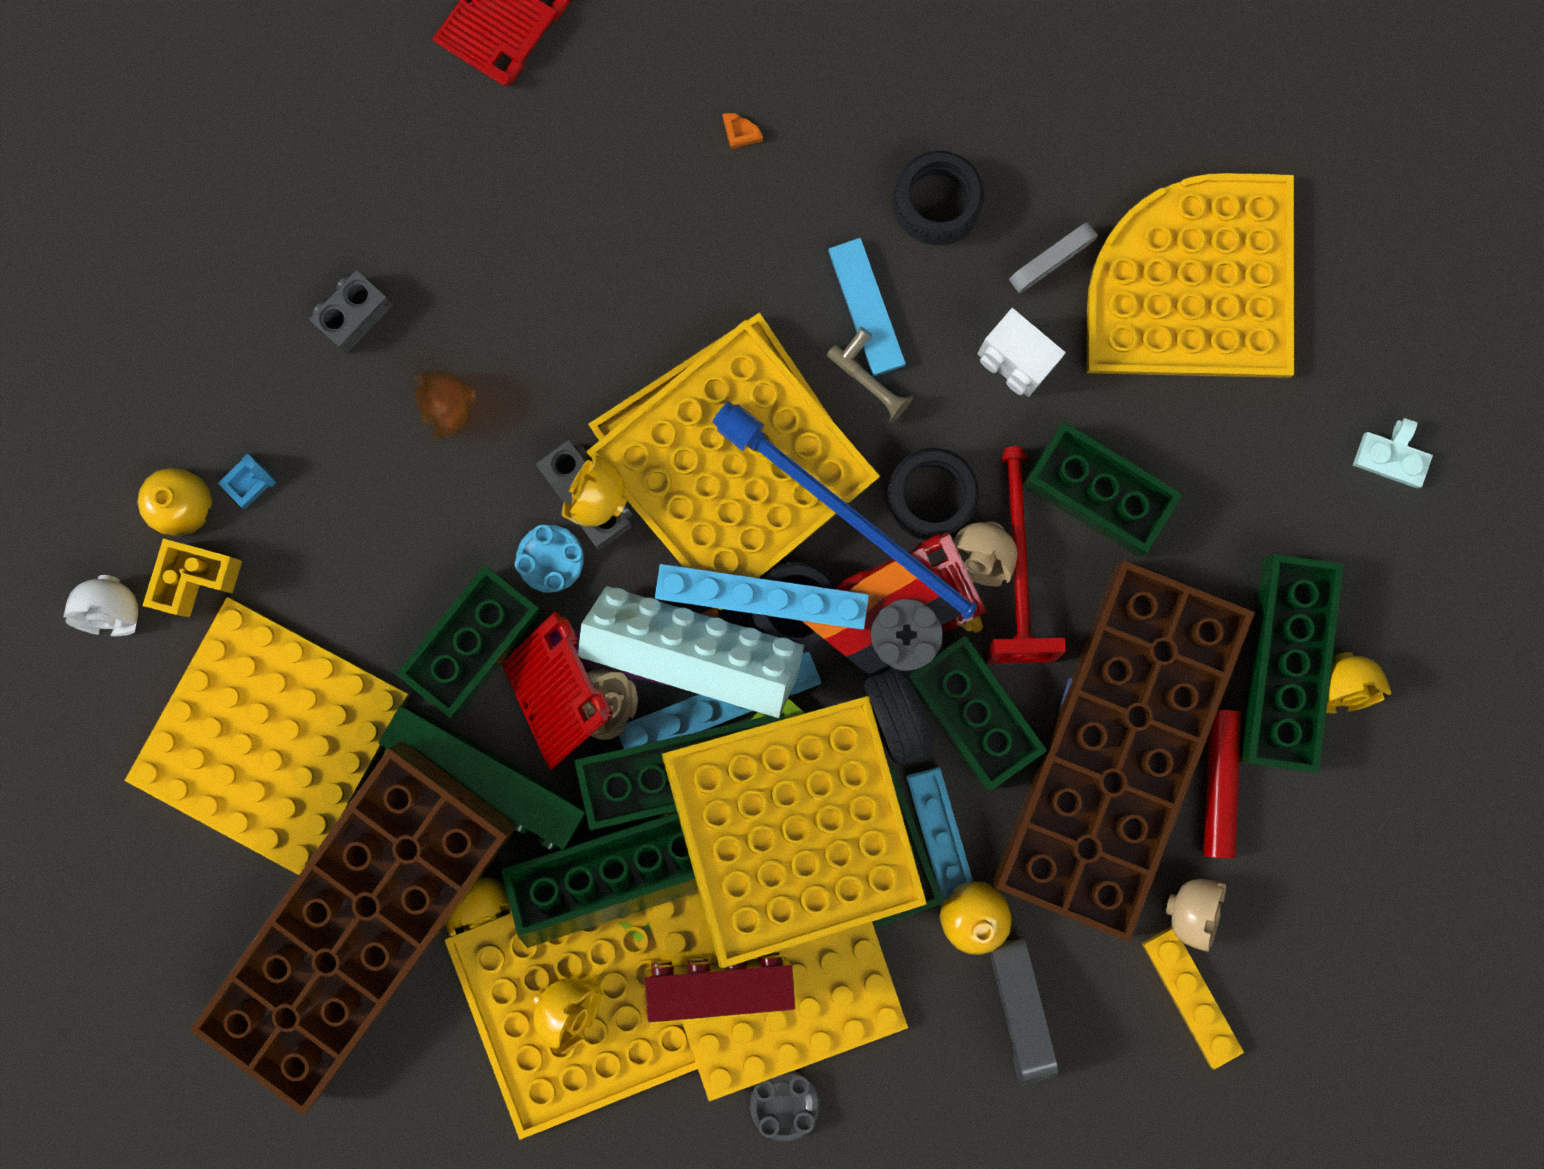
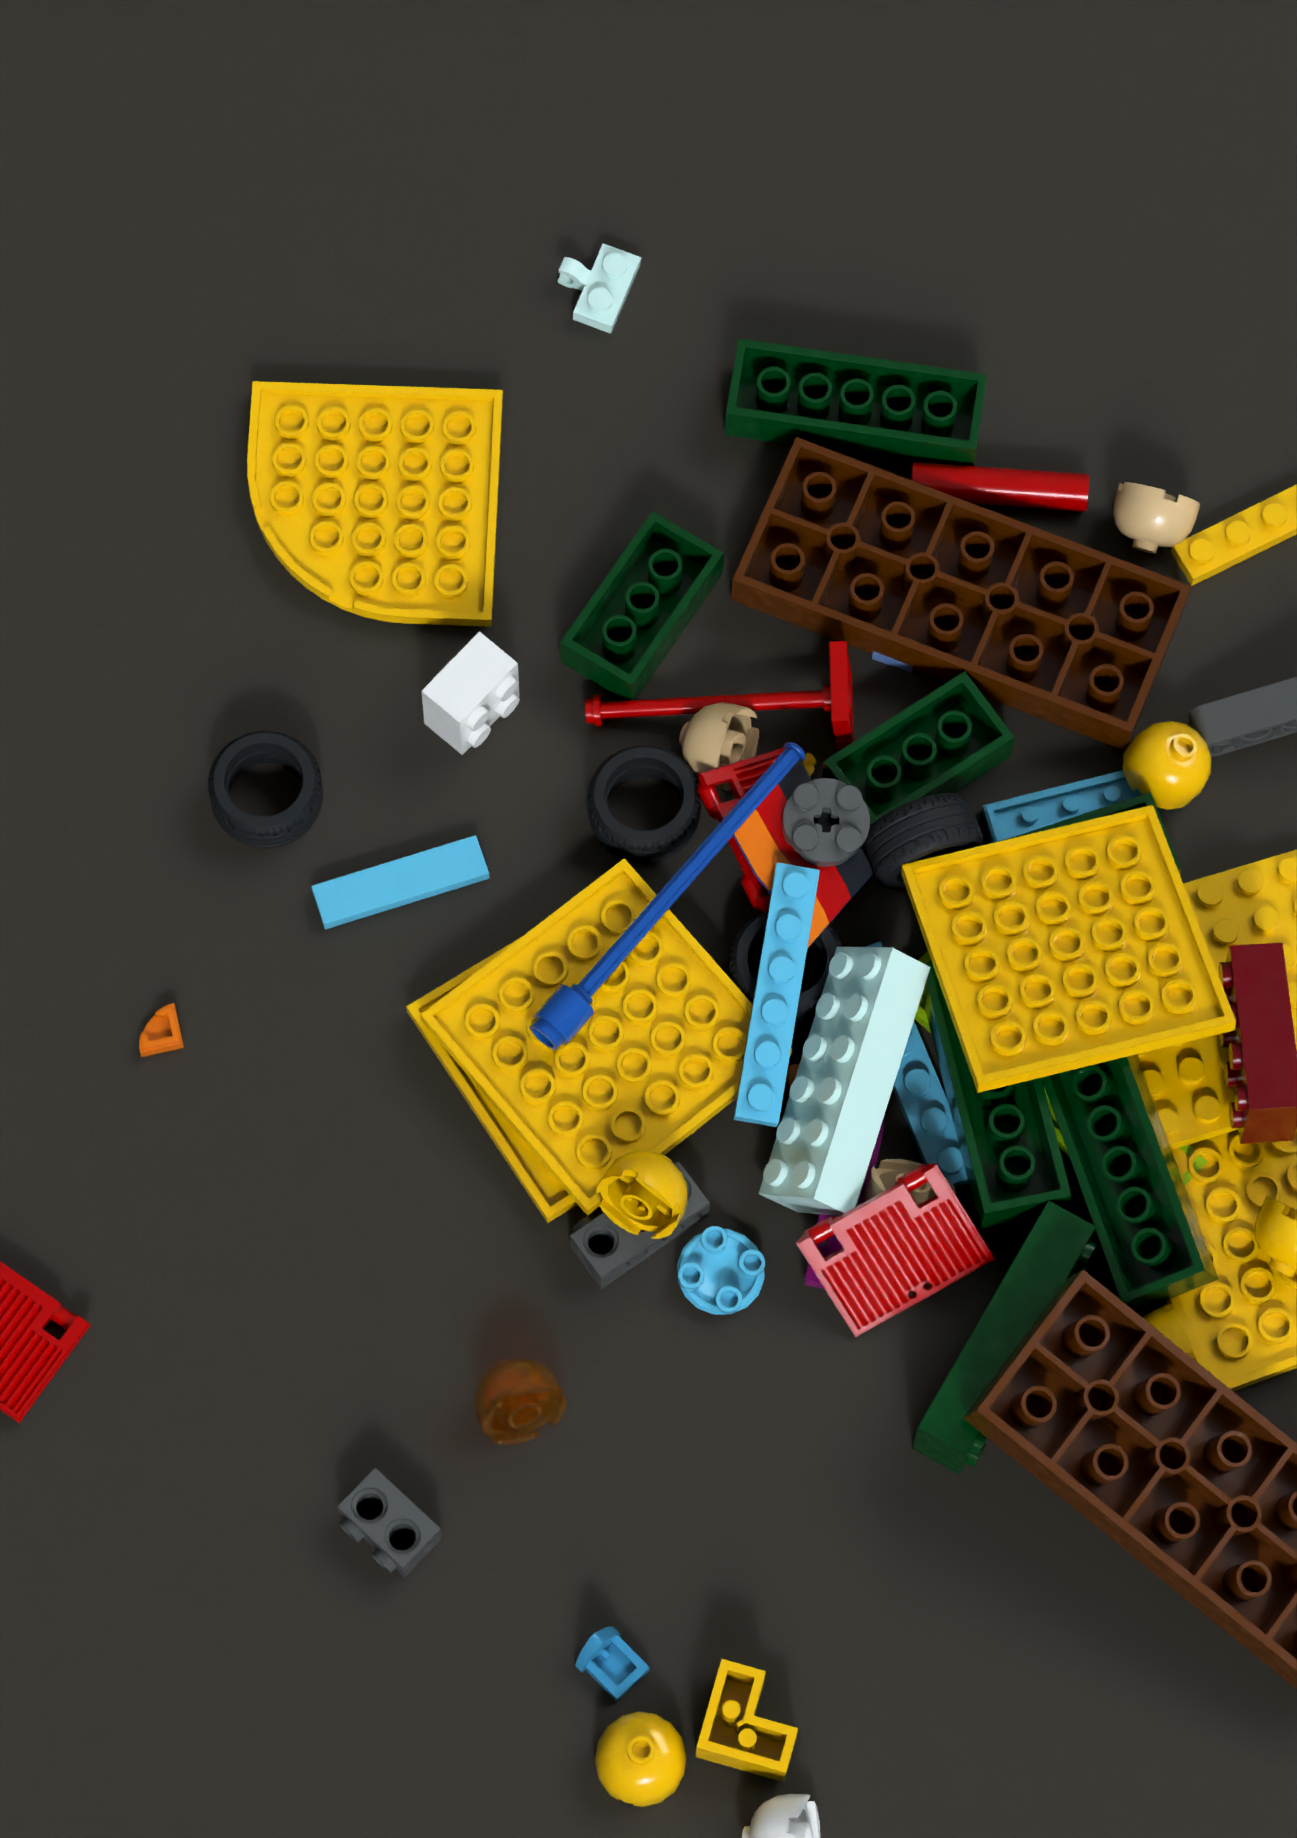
camera: 90 degrees left, 15 degrees down
(266, 736) = (954, 1634): yellow plate -> none
(469, 642) = (831, 1362): dark green brick -> none
(845, 359) = (469, 907): dark tan piece -> none
(1053, 257) = (346, 658): light grey beam -> none
(1355, 683) = (876, 331): yellow cylinder -> none

